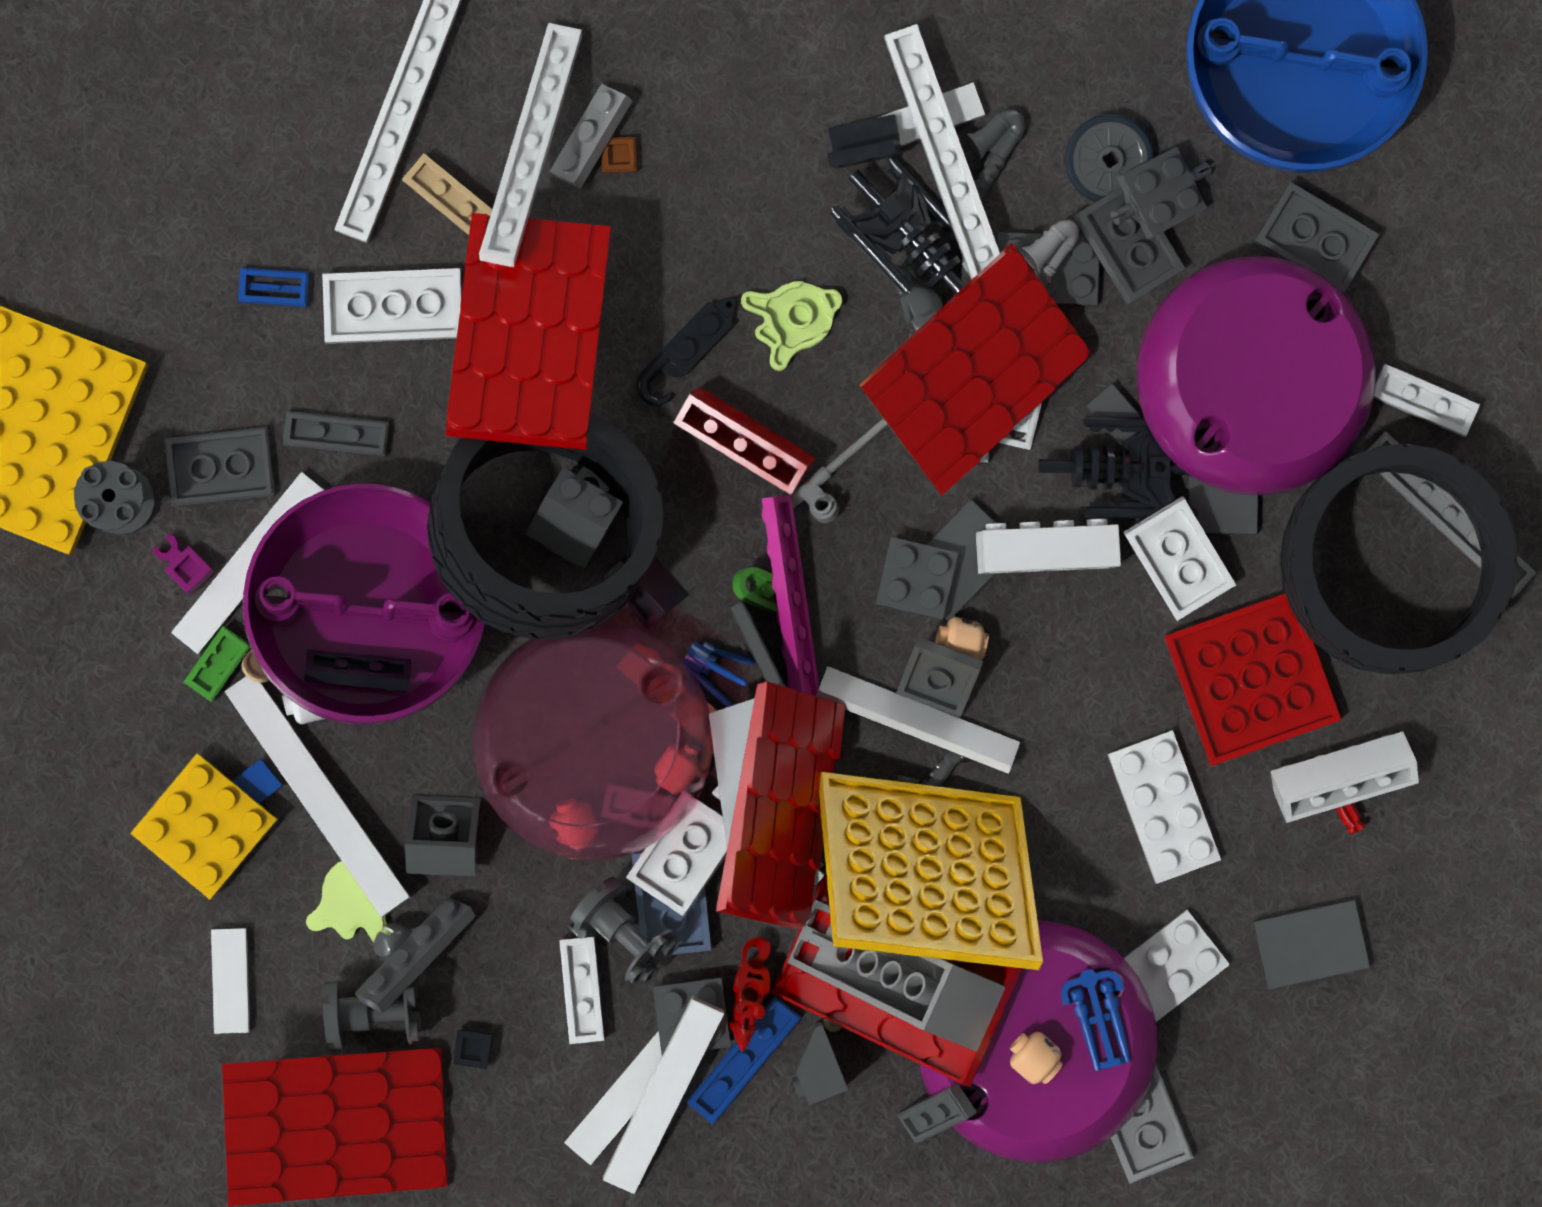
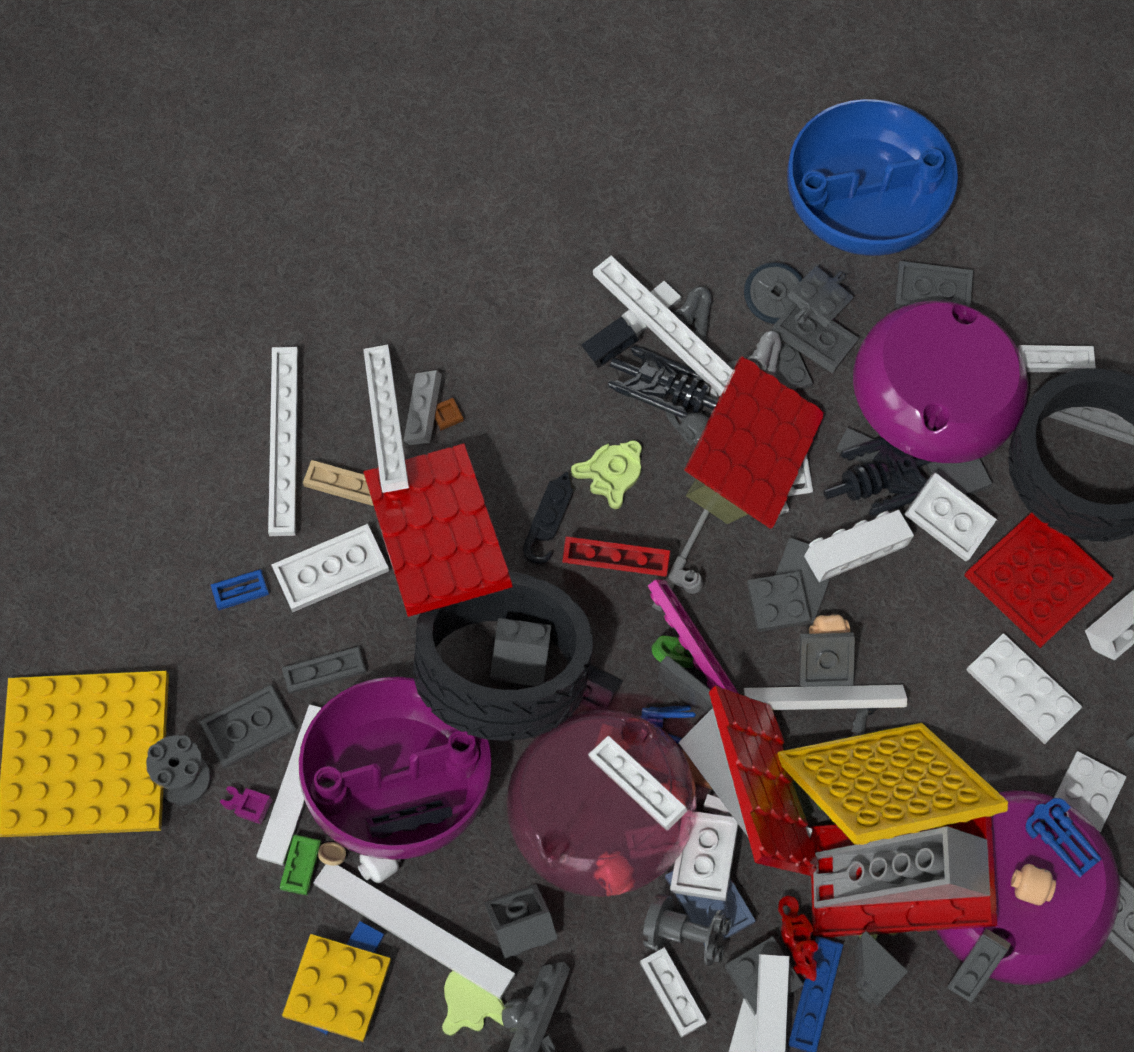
camera: 25 degrees left, 20 degrees down
(630, 752) = (637, 783): none -> white plate

